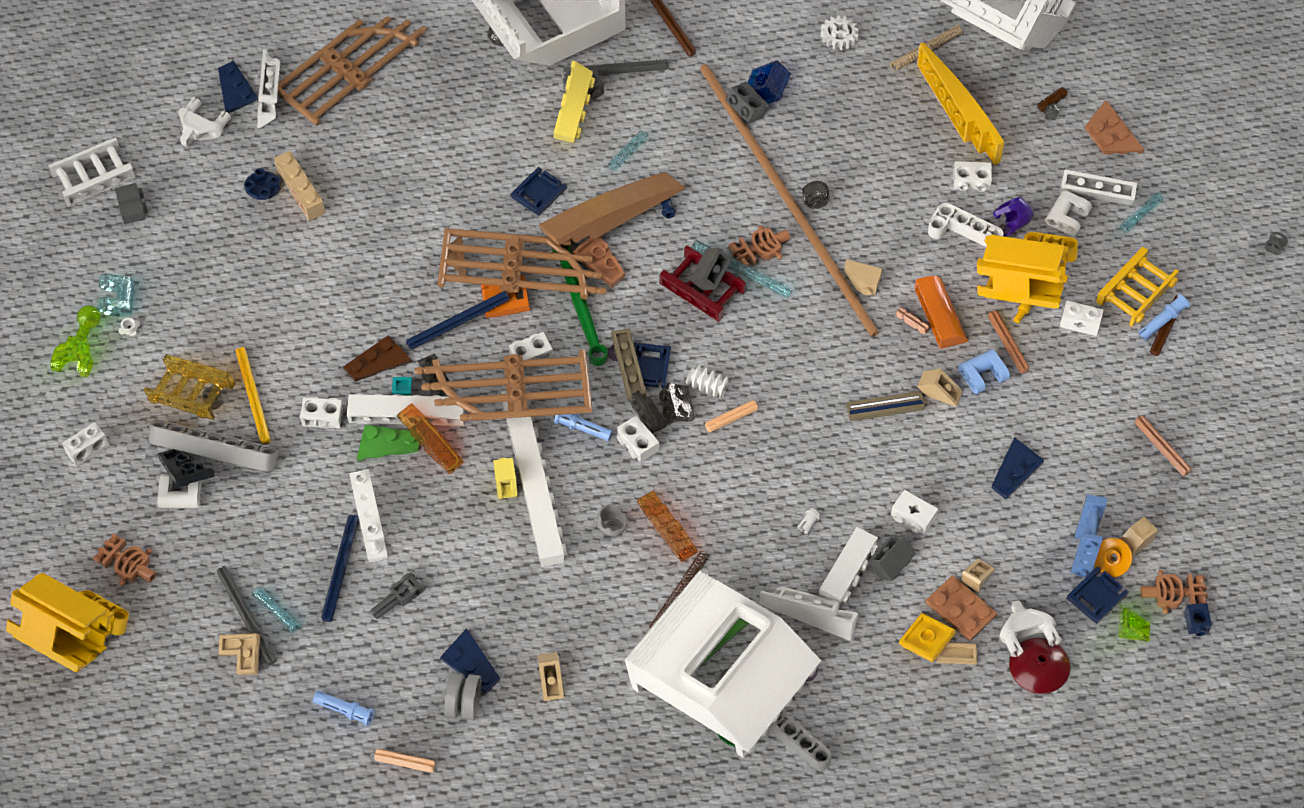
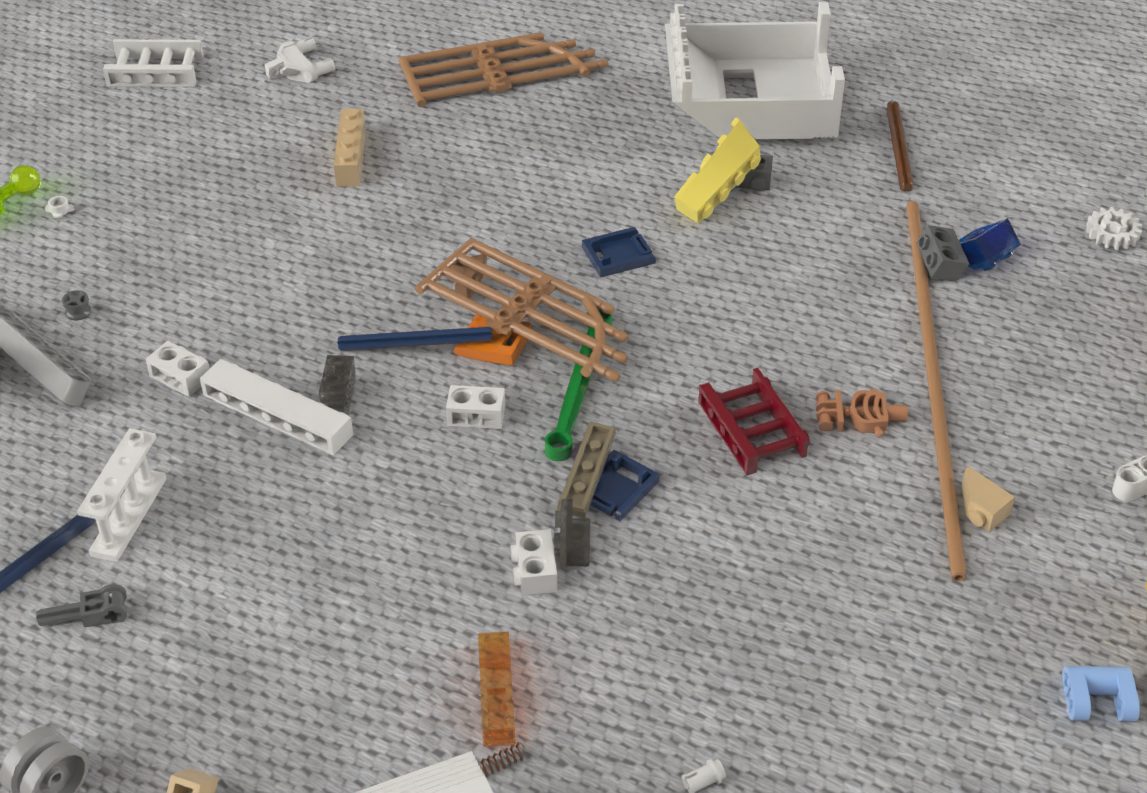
camera: 30 degrees right, 15 degrees down
(123, 304) = (85, 171): clear light blue connector -> none
(130, 203) = (165, 102): dark grey brick -> none
(189, 370) = (71, 265): clear yellow fence -> none
(235, 88) = (362, 48): dark blue wing -> none
(253, 396) = (122, 324): yellow axle -> none
(262, 184) = (314, 135): dark blue dish -> none
(268, 89) = (390, 54): white wedge -> none
(378, 358) = (294, 343): reddish brown wing -> none
(385, 441) = (227, 431): bright green wing -> none
(402, 386) = (291, 377): teal tile -> none
(430, 438) = (275, 447): clear orange slope -> none
(468, 658) = (104, 737): dark blue wing -> none
(505, 478) = (324, 528): light yellow brick -> none
(515, 387) = (417, 429): medium nougat piece -> none
(535, 489) = (363, 552): white brick -> none
(573, 424) = (497, 536): light blue pin -> none
(602, 260) = (640, 347): nougat wing -> none
(610, 209) = (687, 296): medium nougat slope -> none
(611, 514) = (424, 636): light grey hair -> none
(627, 67) = (820, 175): dark grey axle -> none
(627, 150) = (757, 251): clear light blue axle -> none
(668, 210) = (764, 327): dark blue pin -> none
(676, 403) = (620, 543): clear smoke bracket -> none
(707, 382) = (678, 533): white piece -> none
(710, 269) = (767, 399): dark grey brick -> none
(731, 416) = (685, 591): light nougat axle -> none
(749, 272) = (817, 426): clear light blue axle -> none
(816, 191) = (973, 381): clear smoke hair -> none
(885, 406) = (919, 675): dark tan tile -> none
(912, 320) = (1026, 583): axle -> none
(940, 311) = (1075, 588): orange brick -> none
(940, 386) = (1018, 684): tan slope -> none

